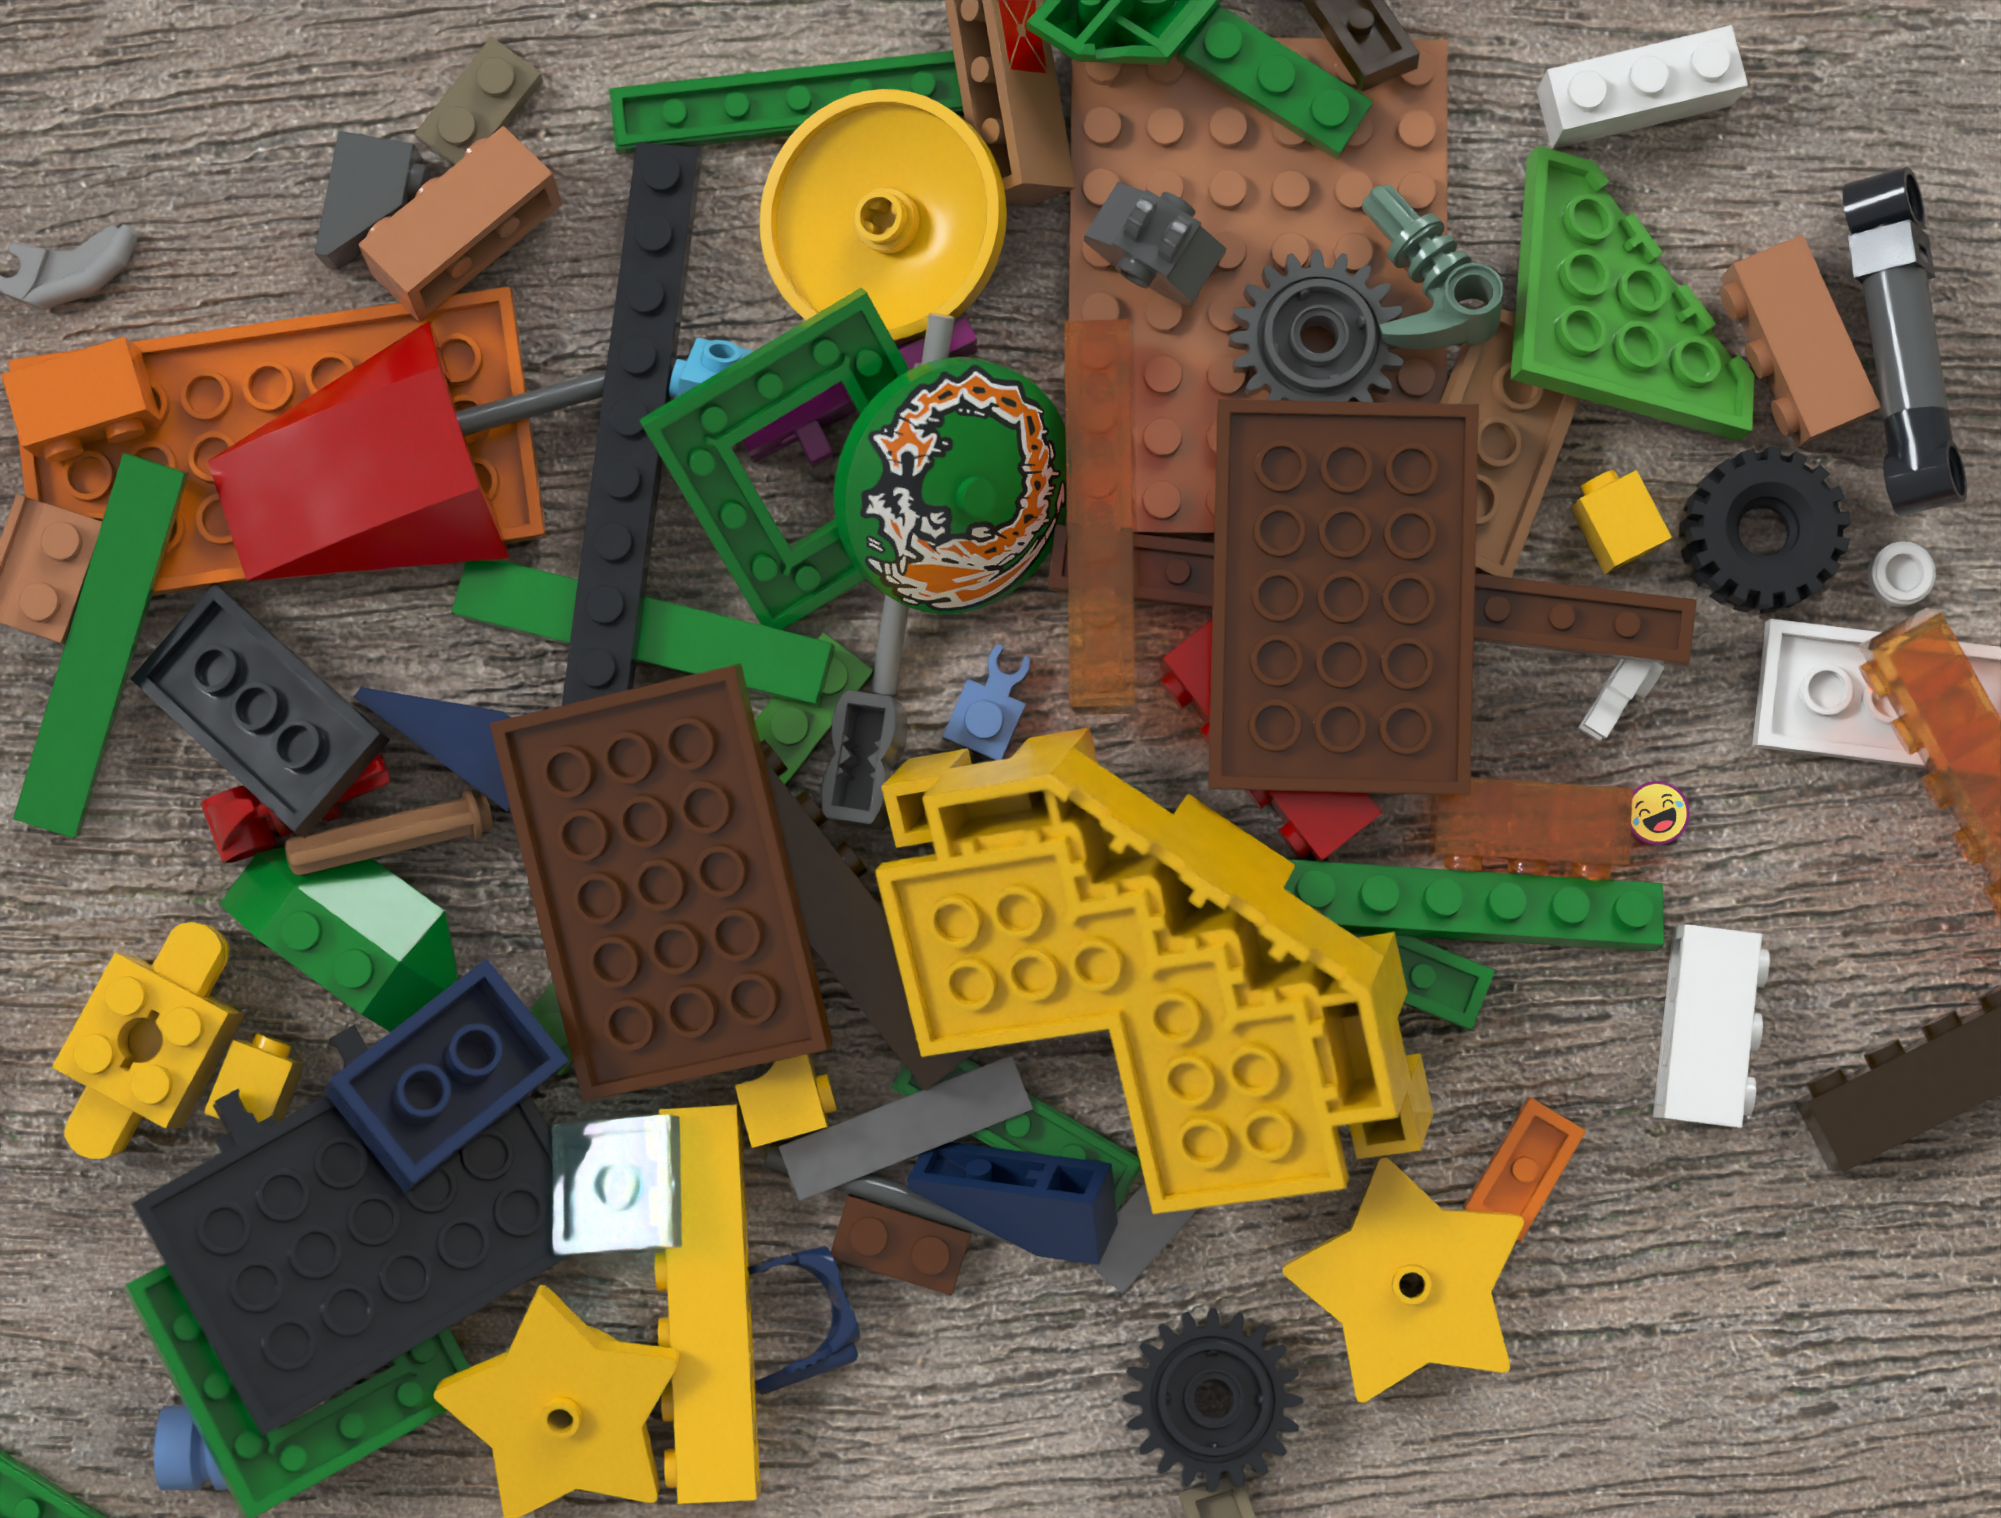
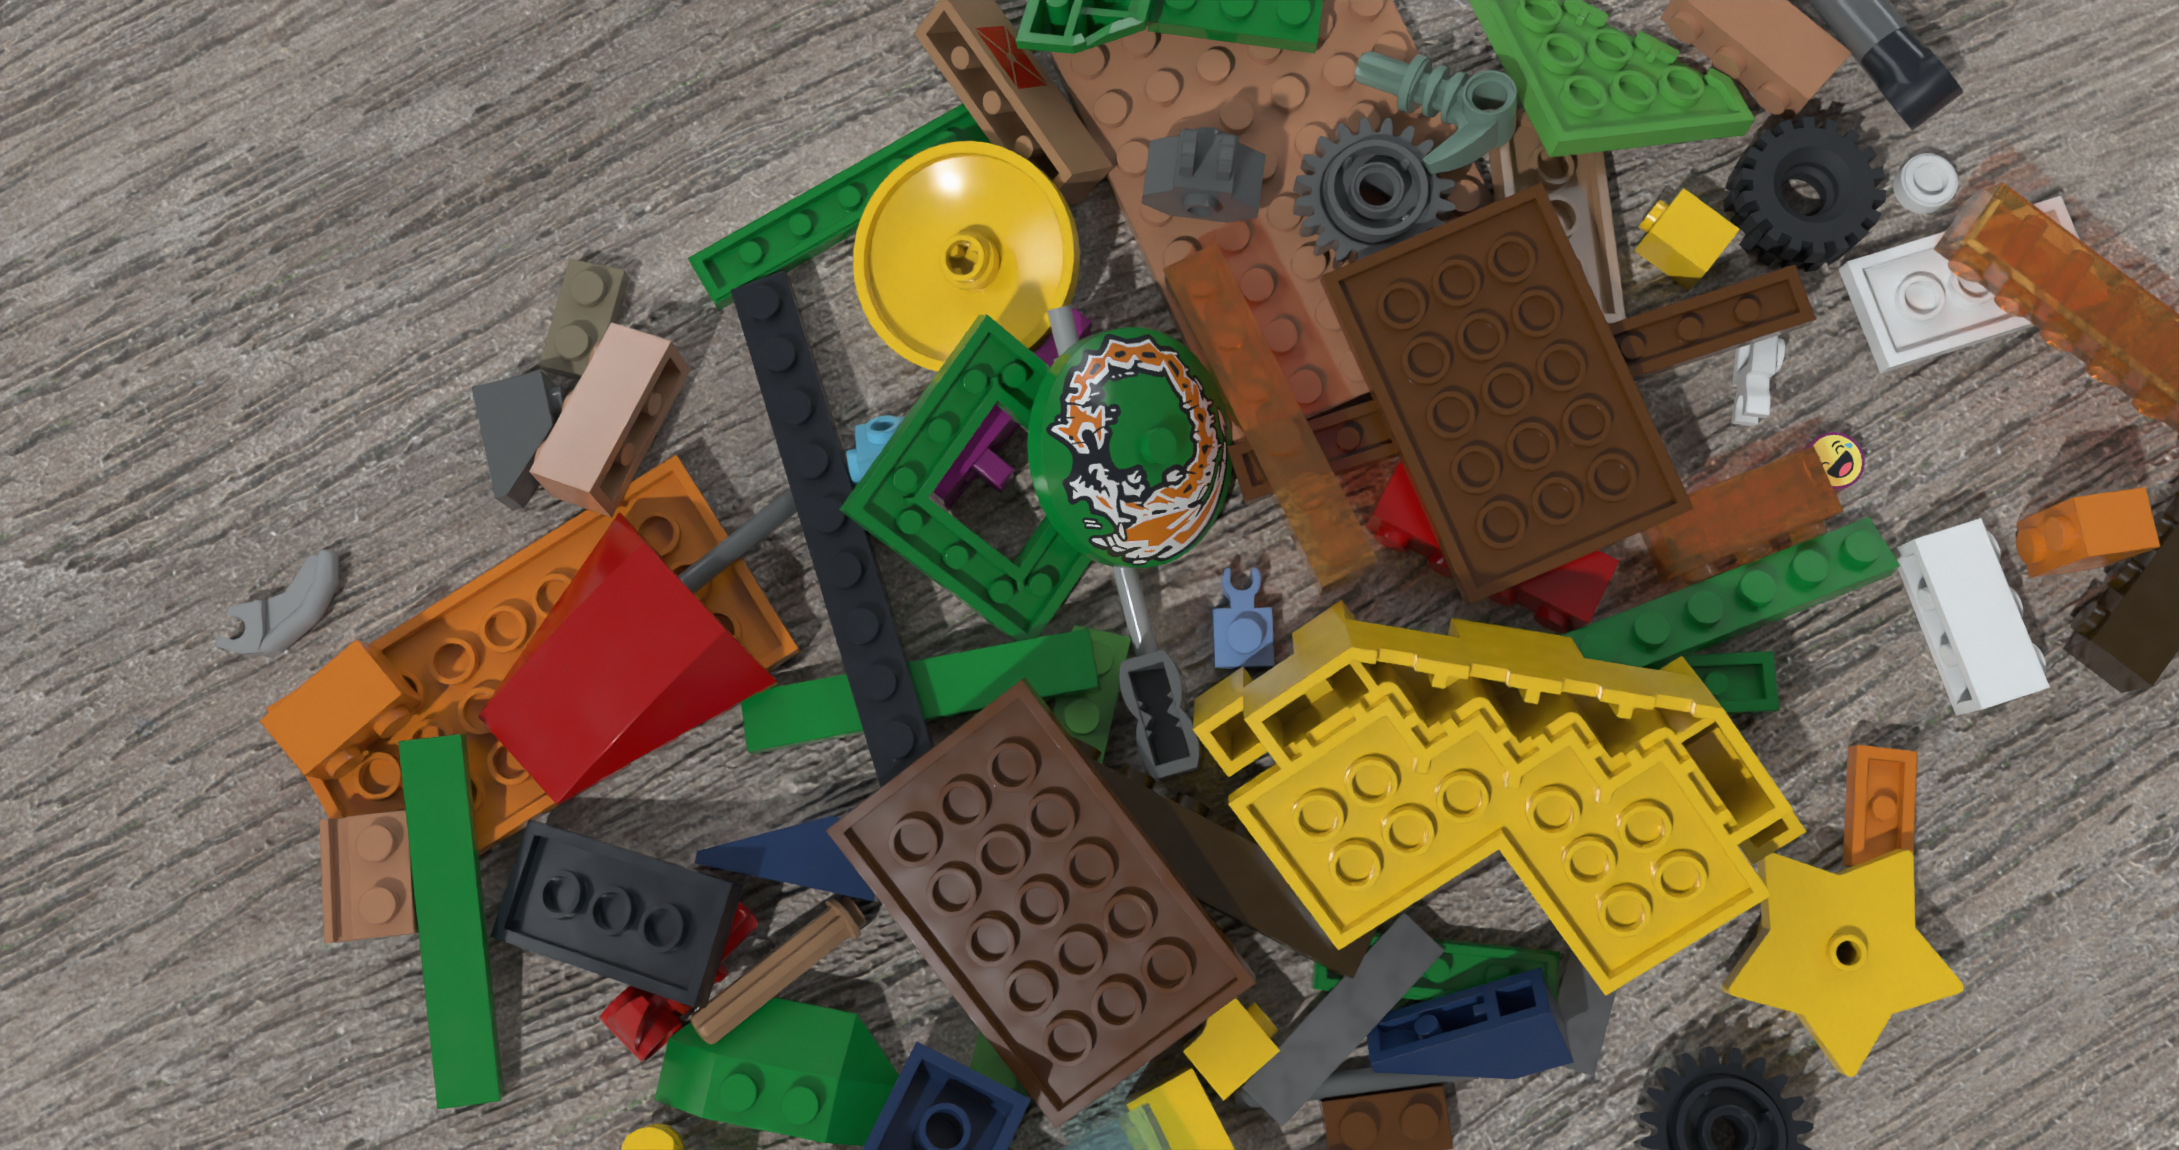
camera: 25 degrees left, 5 degrees down
(1856, 995) = (2087, 533): none -> orange brick

